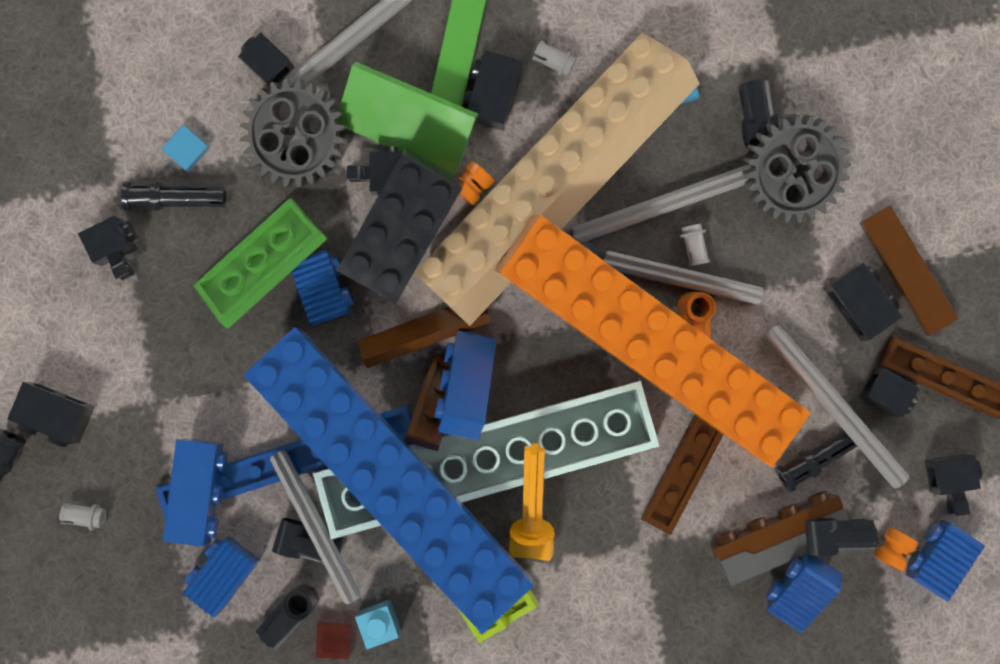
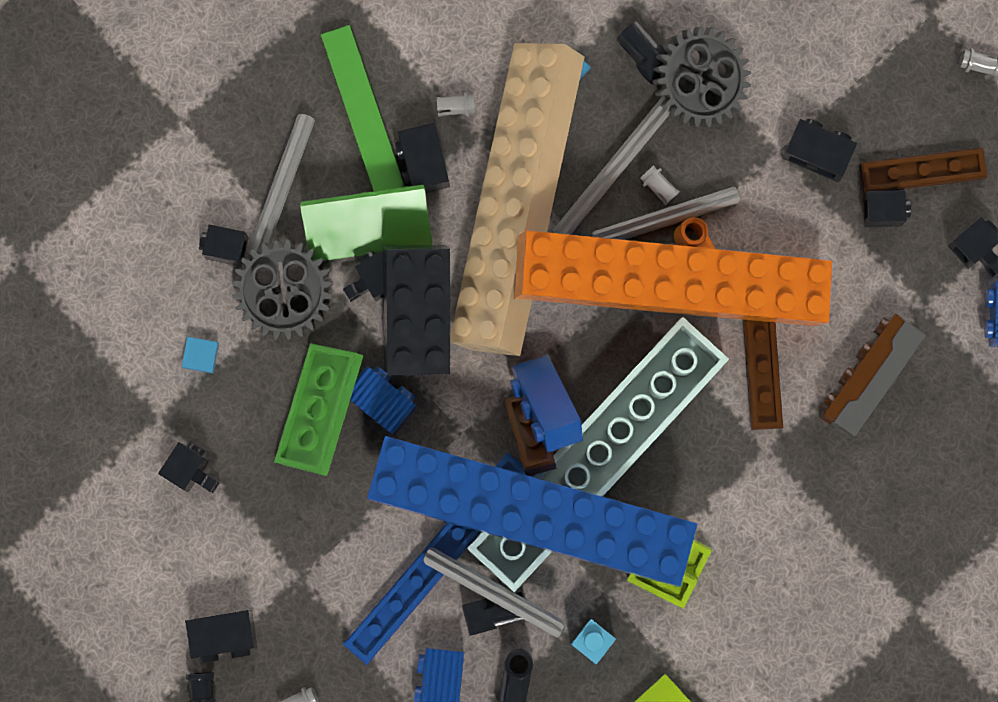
camera: 30 degrees left, 5 degrees down
(159, 196) = (201, 407): black pin -> none
(194, 492) = (379, 623): blue brick -> none
(333, 640) = (564, 680): clear red tile -> none
(415, 335) = (480, 391): reddish brown tile -> none
(470, 192) = (454, 238): orange wheel -> none
(532, 535) = (672, 493): light orange piece -> none
(804, 591) = (915, 406): blue brick -> none
(811, 462) = (858, 302): black pin -> none
(830, 536) = (908, 346): black piece -> none
(837, 407) = (850, 244): light grey axle -> none
(895, 549) = (967, 329): orange wheel -> none
(908, 271) = (841, 104): reddish brown tile -> none

